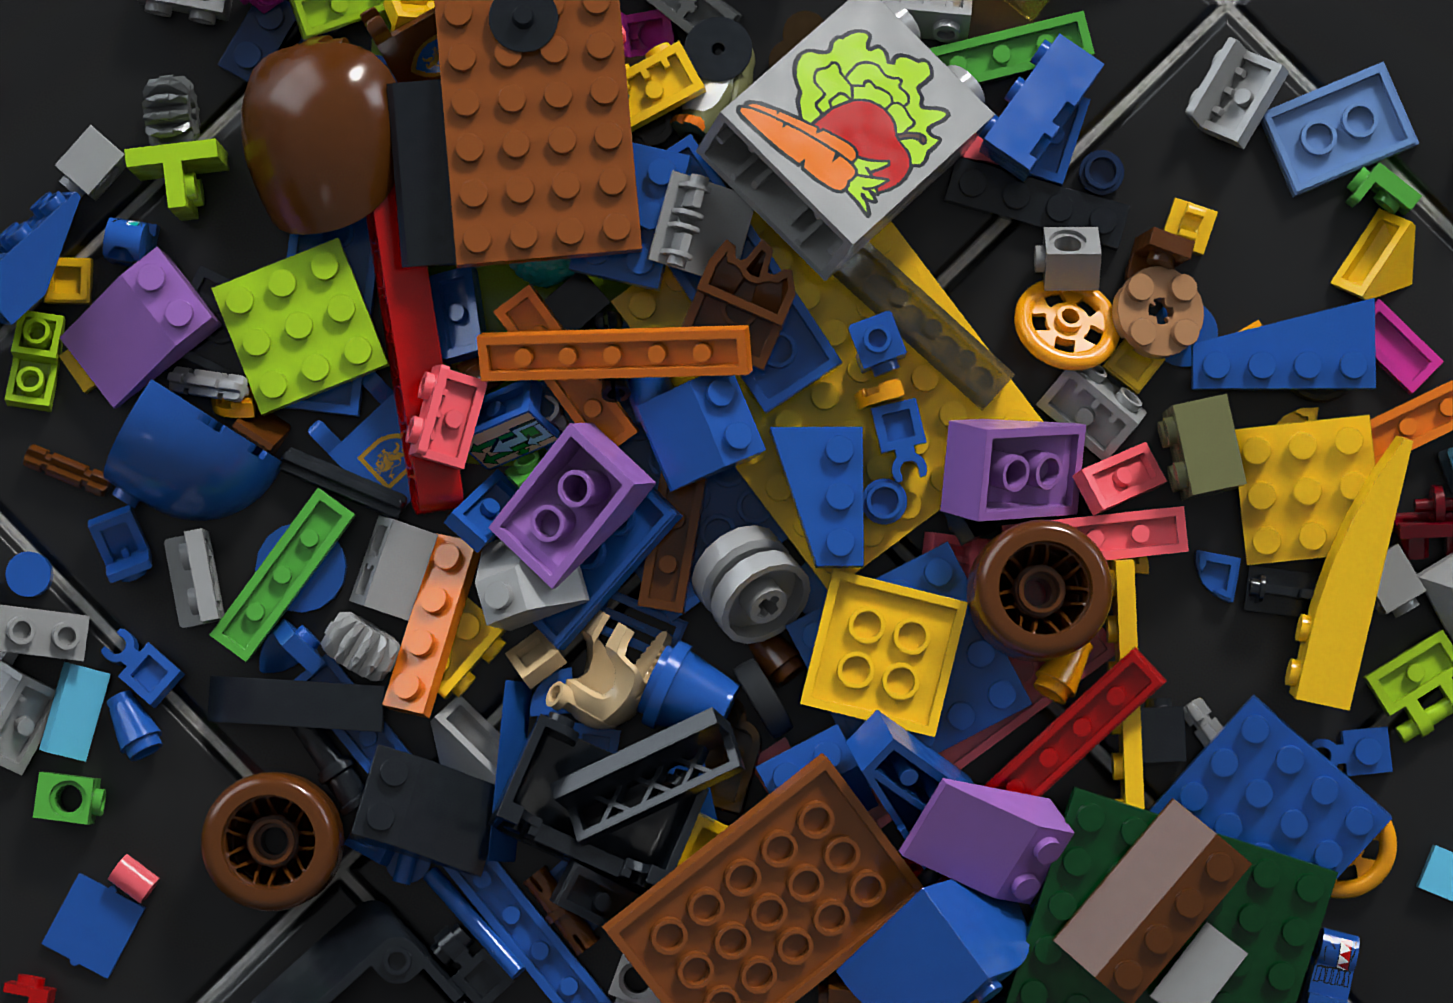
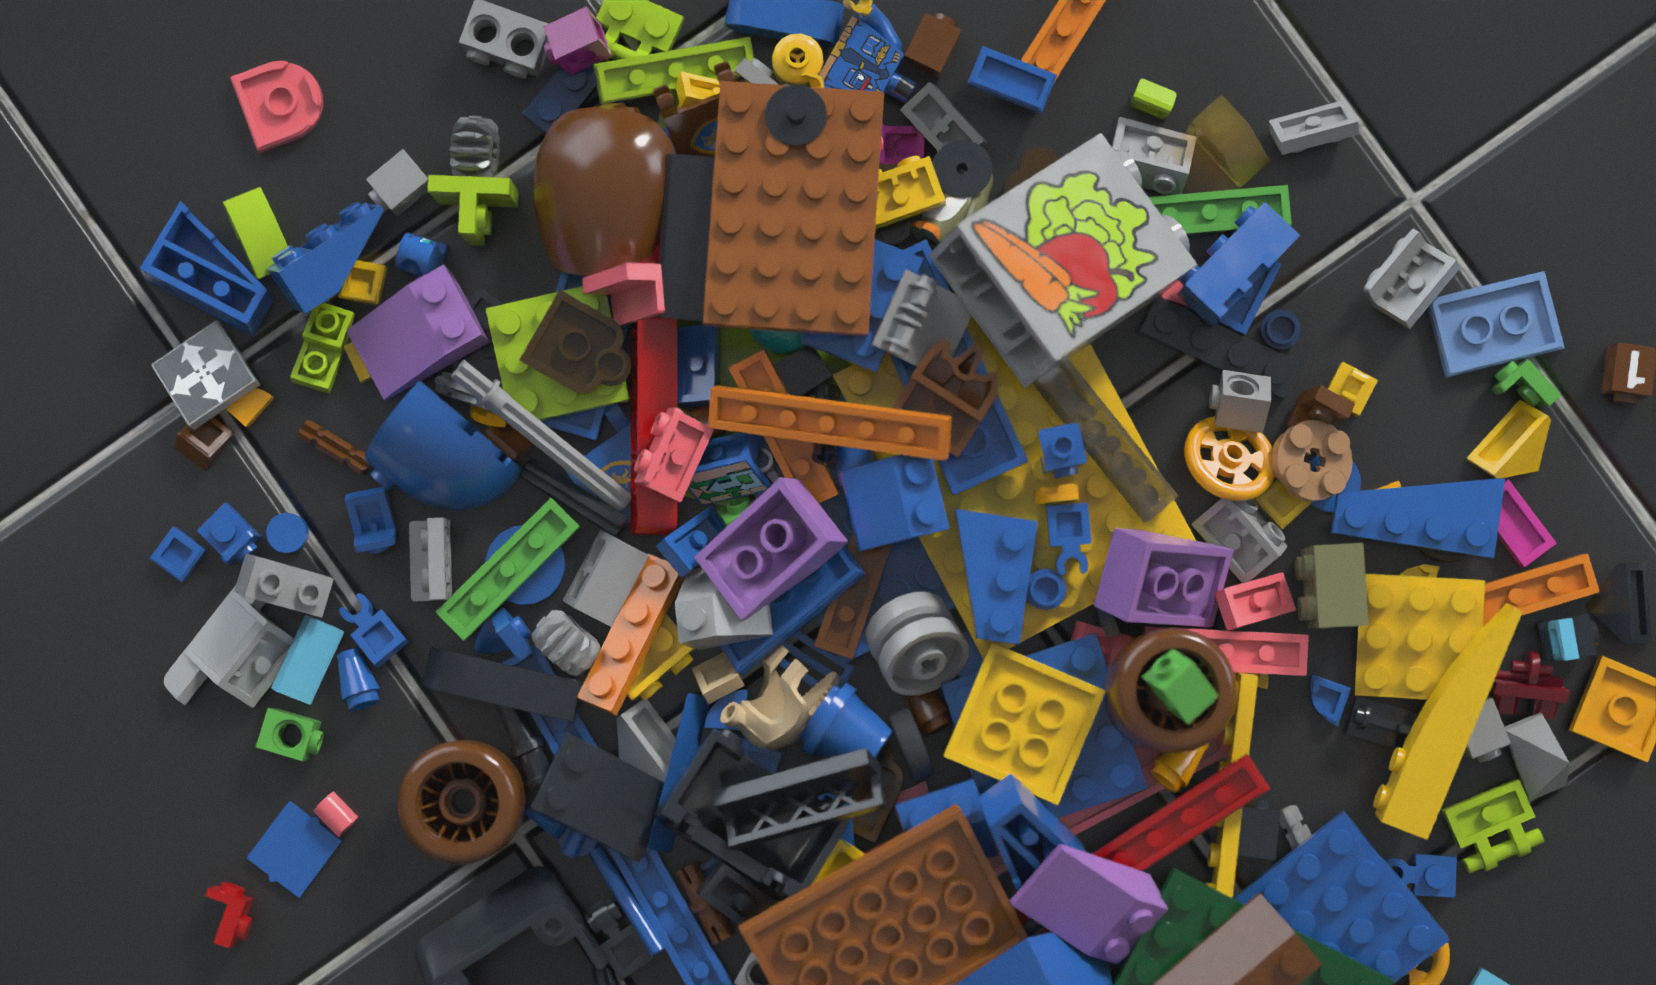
camera: 15 degrees right, 0 degrees up
(247, 391) = (534, 430): none -> light grey axle
(321, 314) = (578, 346): none -> dark brown plate
(374, 242) = (633, 288): none -> coral panel
(1047, 582) = (1180, 686): none -> bright green brick

